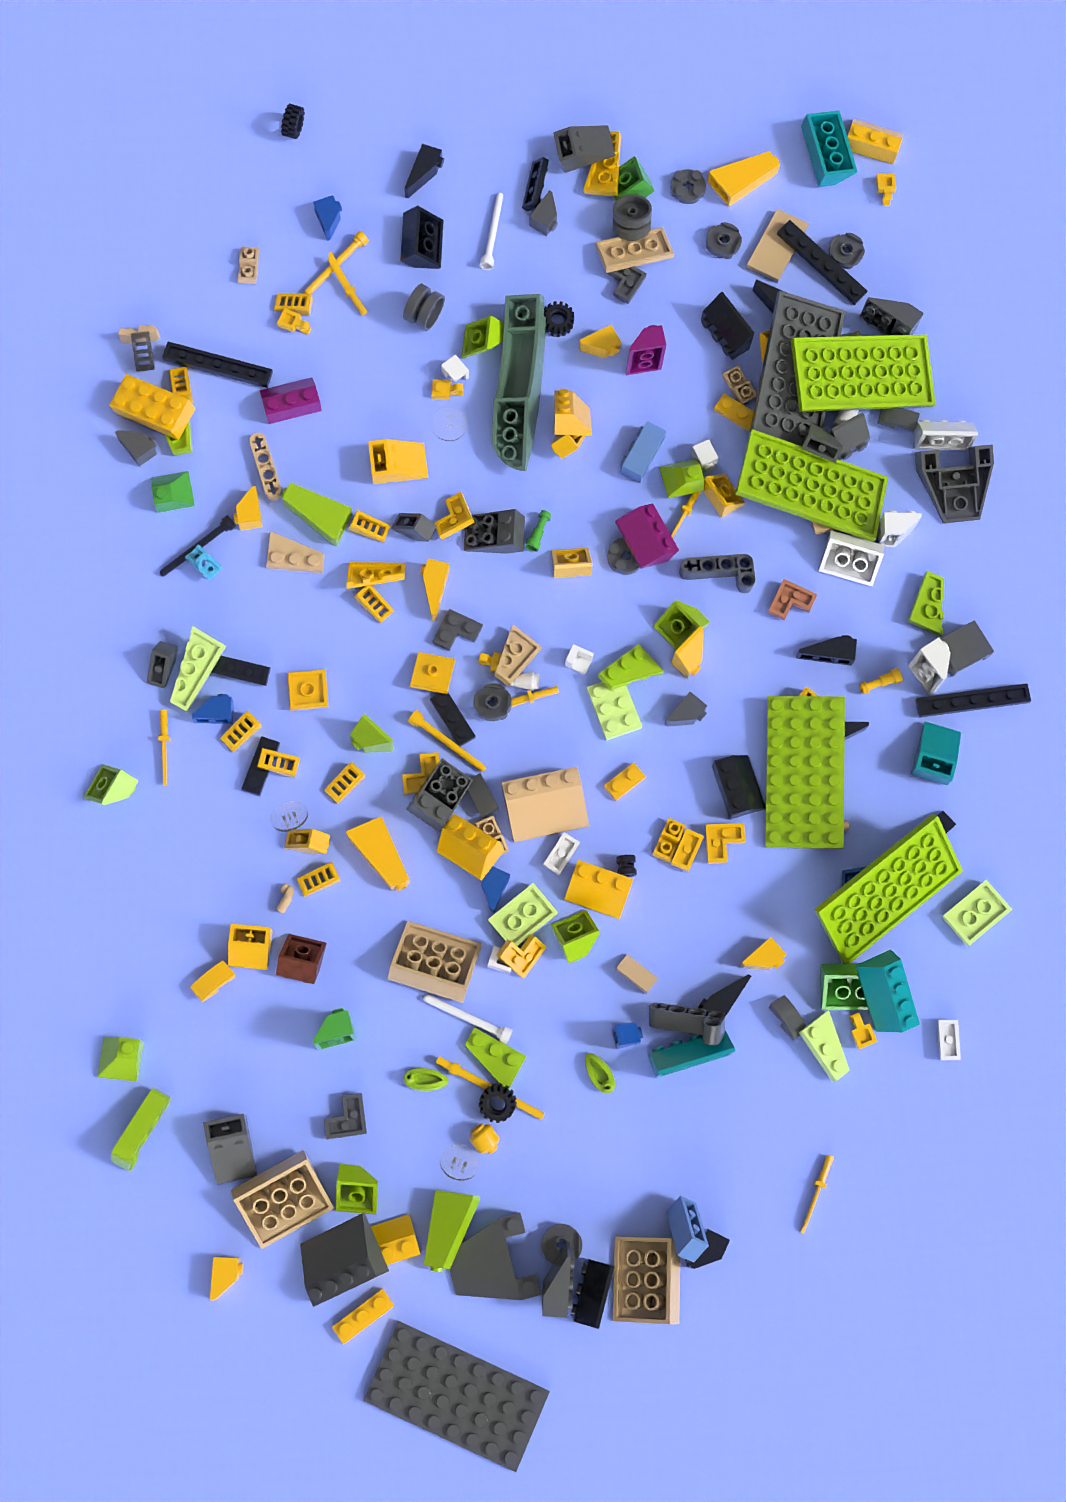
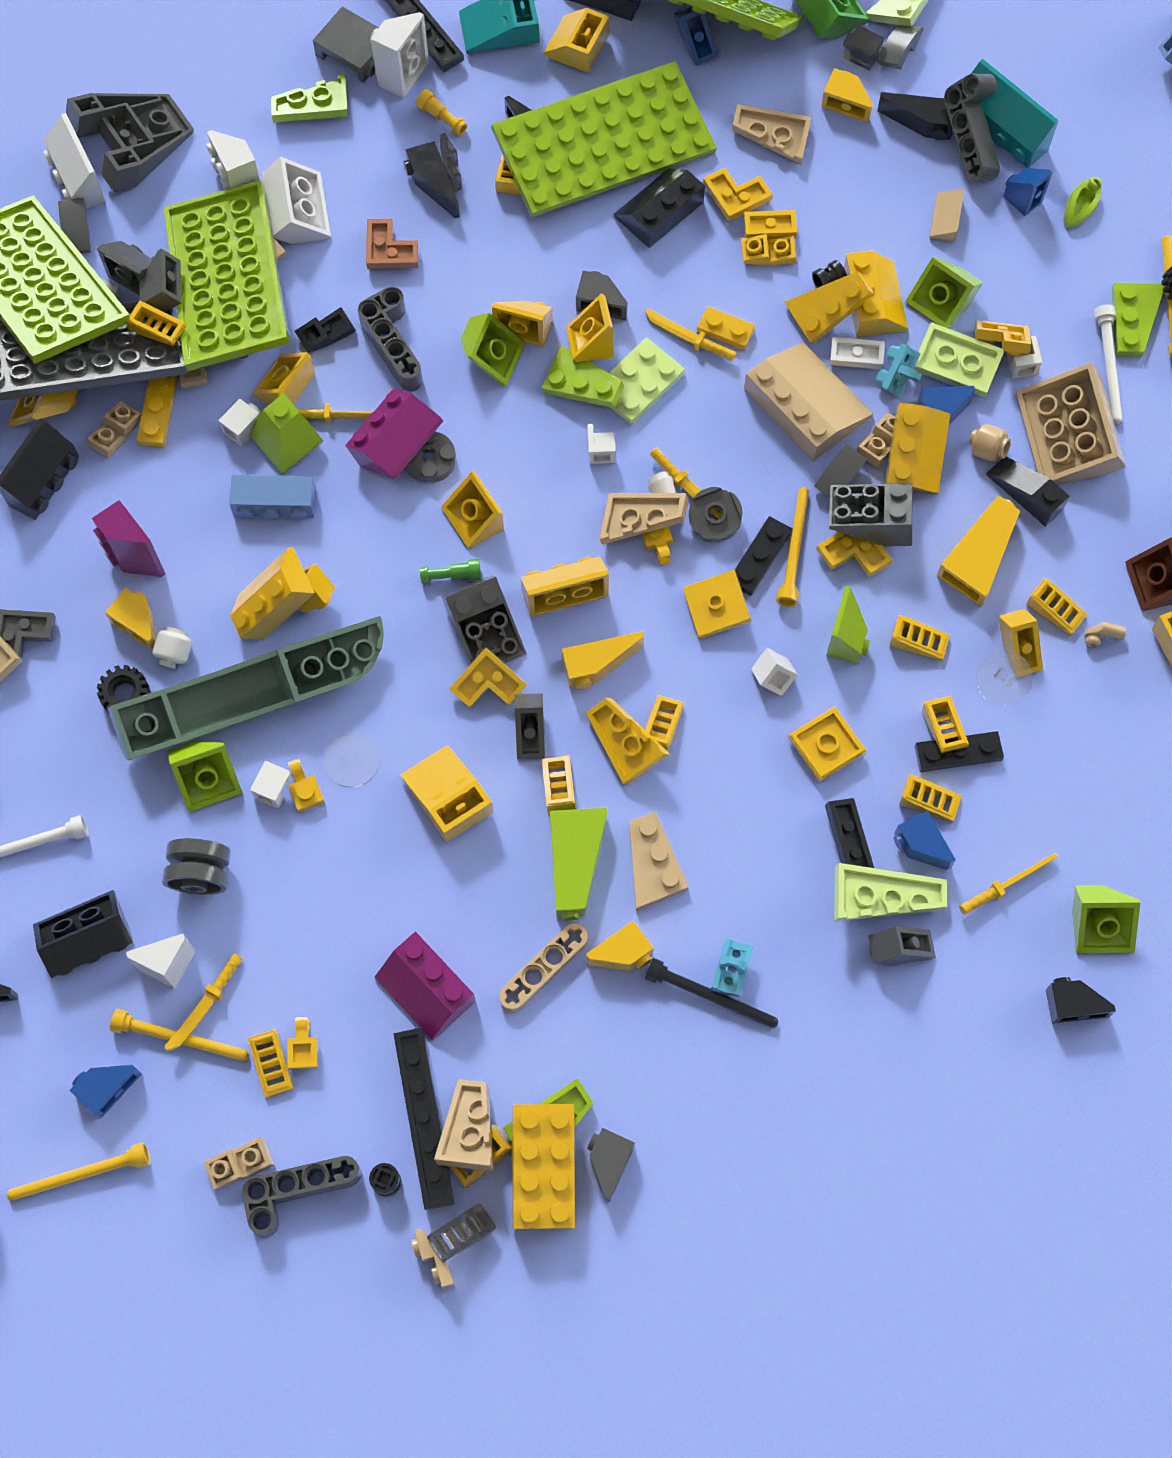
camera: 110 degrees left, 5 degrees down
(72, 743) = (1076, 1002): none -> black slope
(172, 492) = (648, 1075): bright green slope -> none
(195, 329) = (388, 1184): none -> black wheel
(195, 379) = (467, 1129): none -> tan wing
(216, 289) = (302, 1188): none -> dark grey beam
(281, 217) = (136, 1156): none -> yellow piece
(370, 683) = (774, 671): none -> white panel
(377, 267) = (164, 959): none -> white slope
(408, 907) = (1029, 489): none -> black slope
(451, 900) = (990, 443): none -> tan head
(454, 625) = (638, 615): dark grey plate -> none
(493, 587) = (565, 586): none -> yellow slope
(524, 871) = (903, 361): none -> medium azure hips
(571, 355) = (172, 647): none -> white head
(602, 848) = (828, 305): none -> yellow wing
(623, 759) = (698, 340): none -> yellow sword
(658, 689) = (591, 332): none -> yellow slope
(748, 535) = (322, 333): none -> black slope
(760, 894) = (773, 129): none -> tan wing
(798, 414) = (144, 310): none -> yellow slope
(799, 990) = (863, 47): none -> clear smoke brick
(842, 667) = (450, 161): none -> clear smoke slope
(896, 797) = (579, 39): none -> yellow slope

